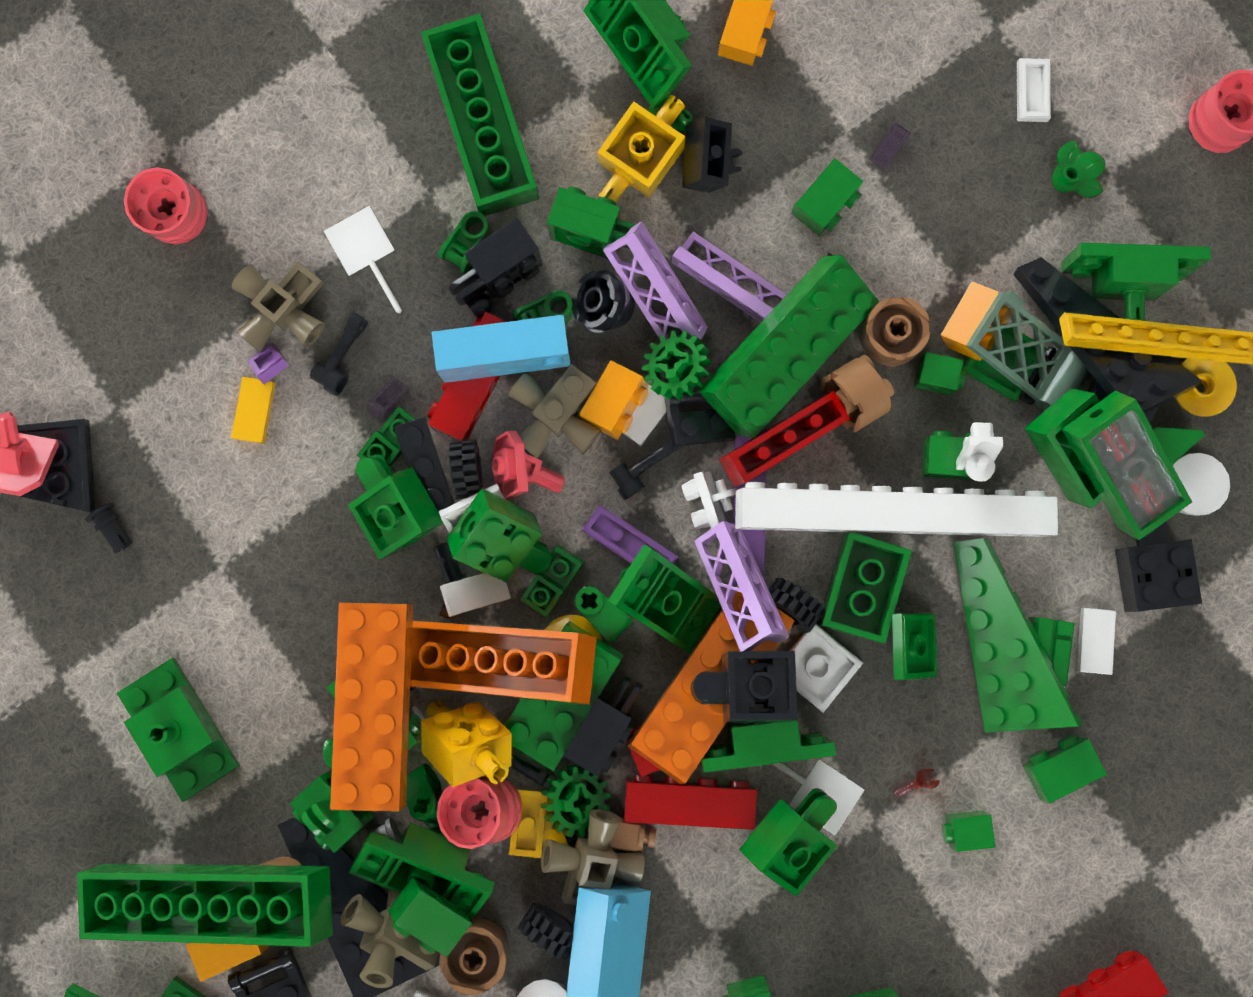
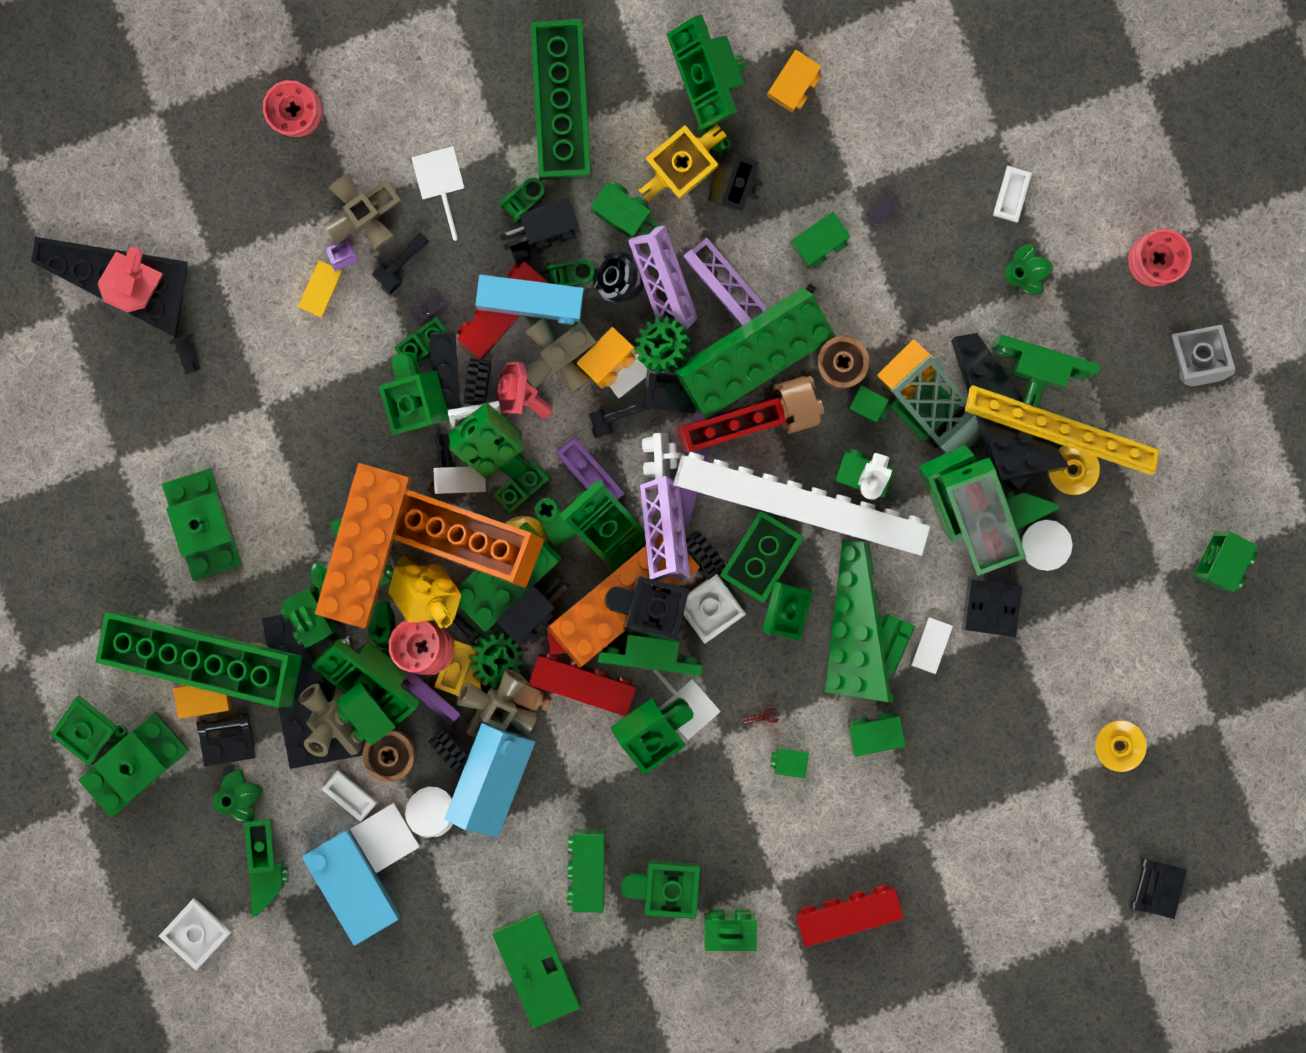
camera: 15 degrees right, 5 degrees up
(509, 870) = (430, 698): none -> medium lavender tile

